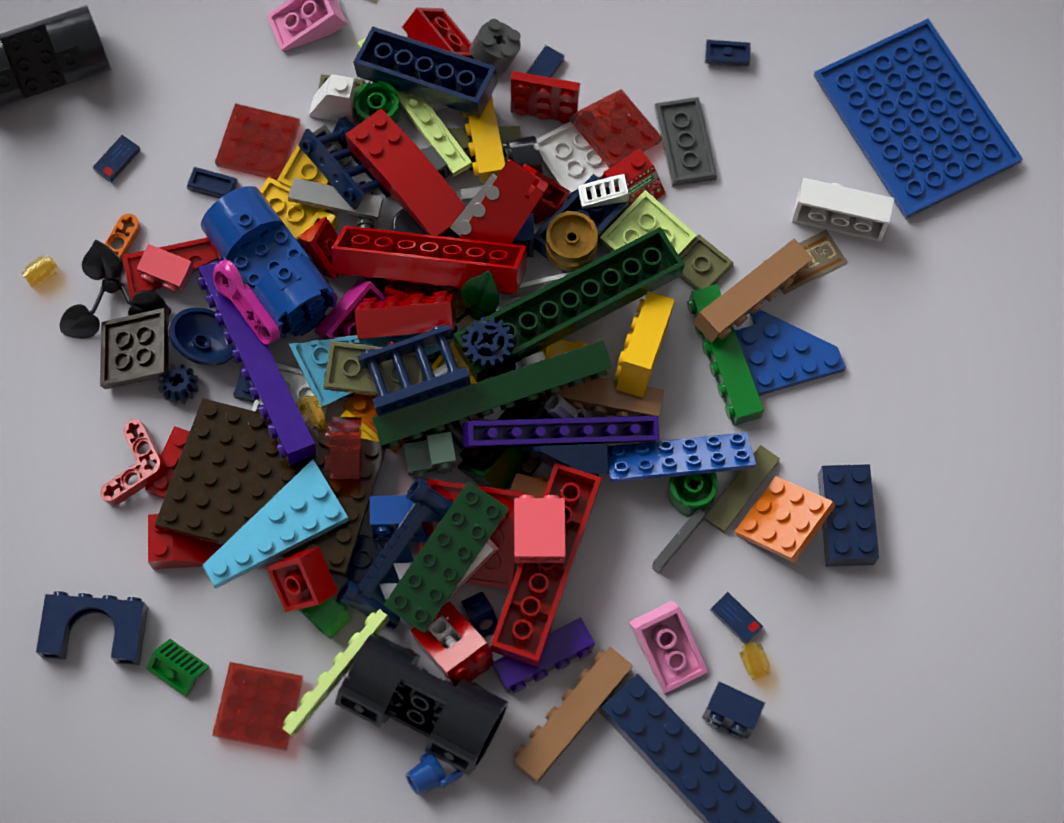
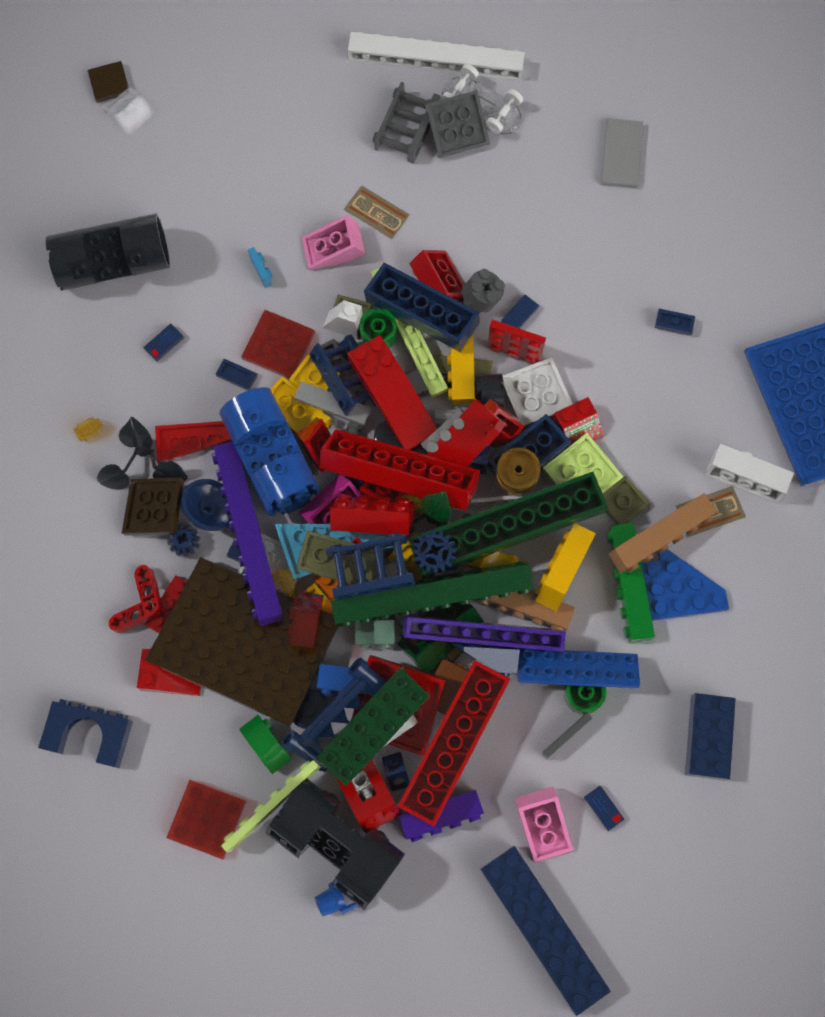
camera: 15 degrees right, 5 degrees up
(118, 234) = (152, 407): orange beam -> none
(164, 268) = (186, 442): coral brick -> none
(176, 666) = (147, 775): green panel -> none
(217, 49) = (257, 260): none -> dark azure plate
(230, 285) = (234, 467): dark pink beam -> none
(290, 519) = (253, 673): medium azure wing -> none
(302, 580) = (255, 726): red slope -> none
(537, 357) = (472, 566): white tile -> none
(539, 529) = (452, 717): coral brick -> none
(560, 408) = (491, 614): light grey piece -> none
(572, 715) = (457, 869): medium nougat brick -> none
(612, 198) = (551, 424): white slope -> none
(615, 128) = (571, 375): clear red plate -> none
(685, 141) = (627, 393): dark grey tile -> none
(733, 711) = (588, 889): dark blue brick -> none
(741, 490) = (625, 700): olive tile -> none
(755, 660) = (613, 848): clear yellow brick -> none
(785, 519) = (657, 733): orange plate -> none

